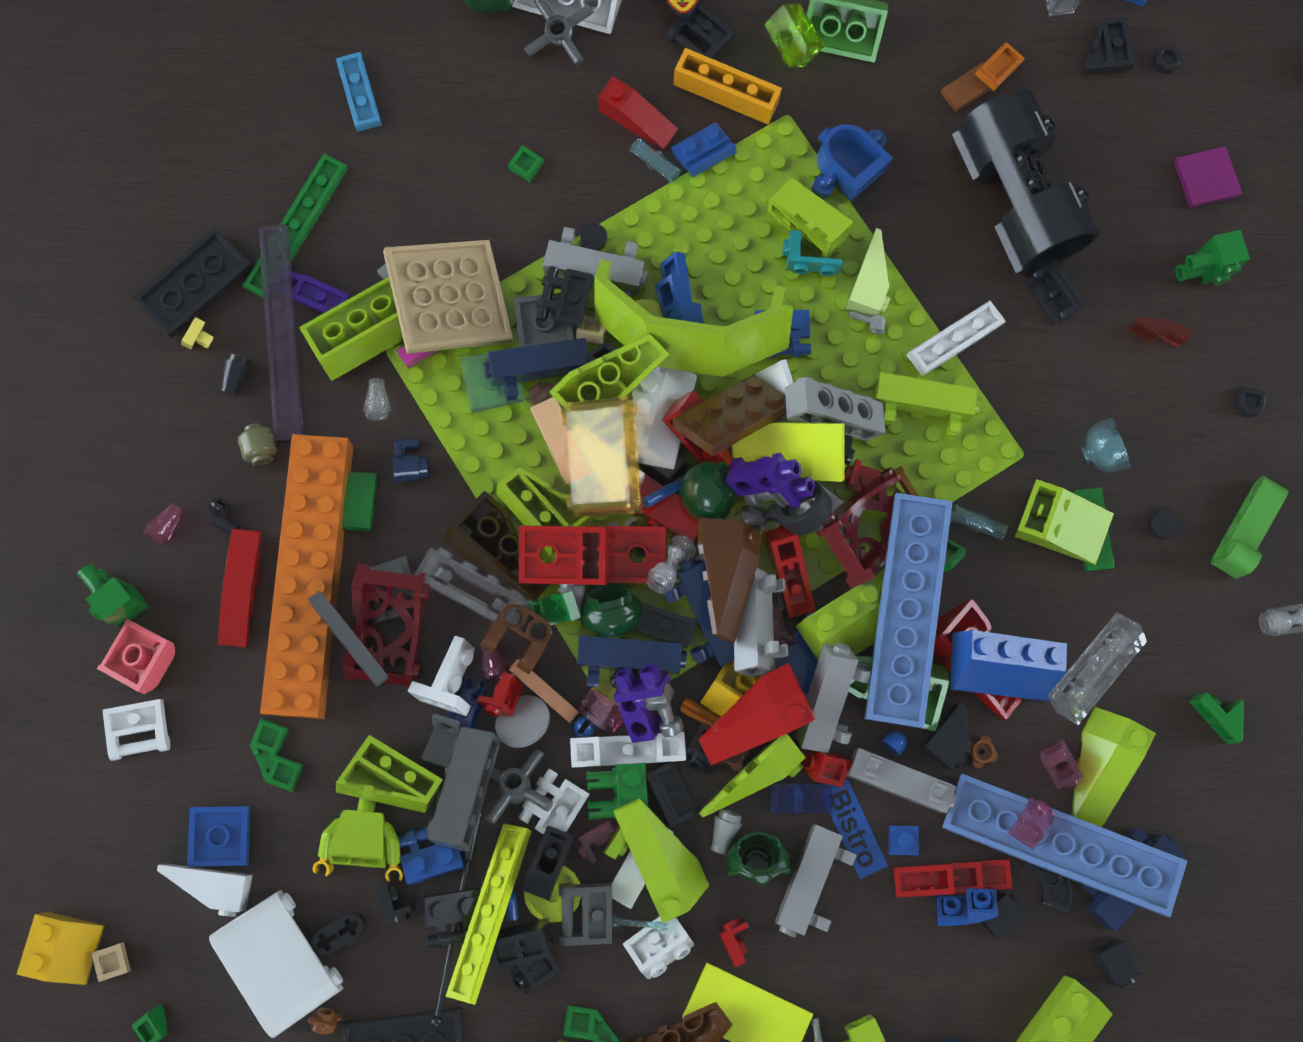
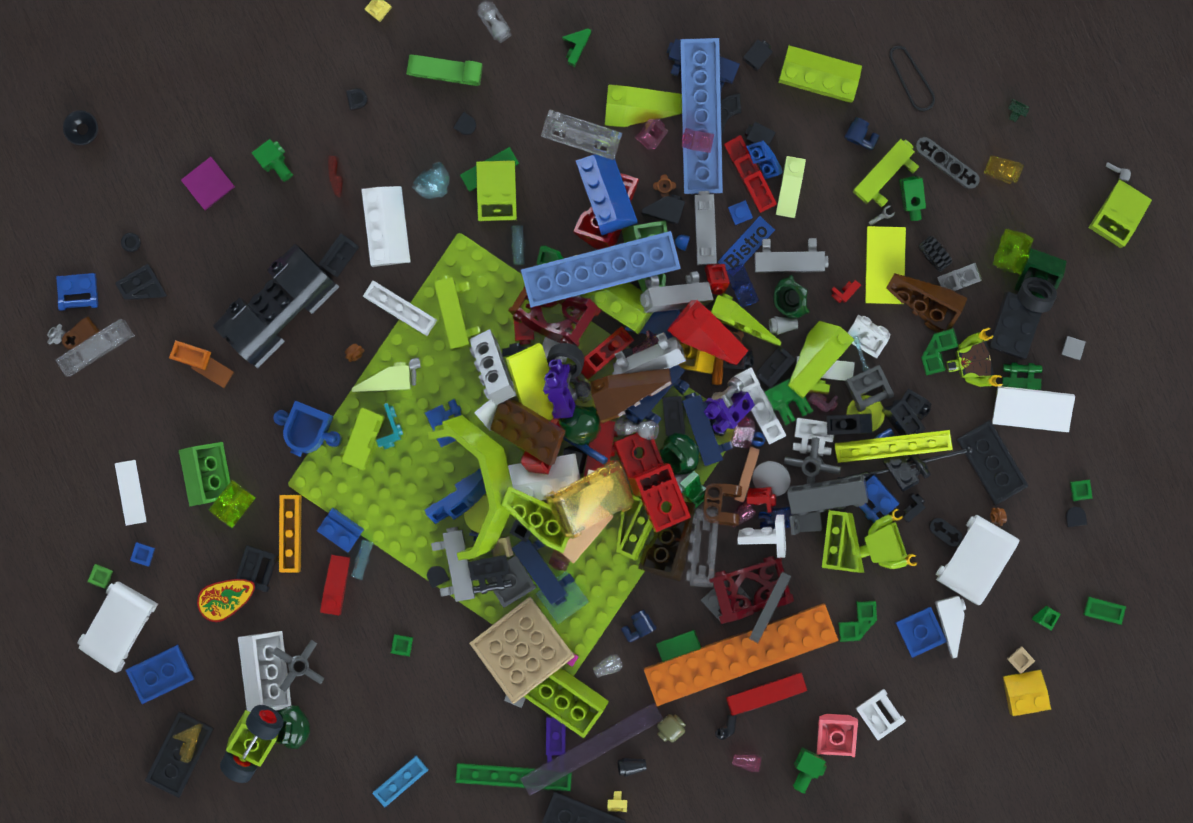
camera: 105 degrees left, 10 degrees up
(913, 927) = (790, 186): none -> yellowish green slope
(922, 259) = (354, 352): none -> dark orange plate
(1071, 365) = (386, 226): none -> white slope

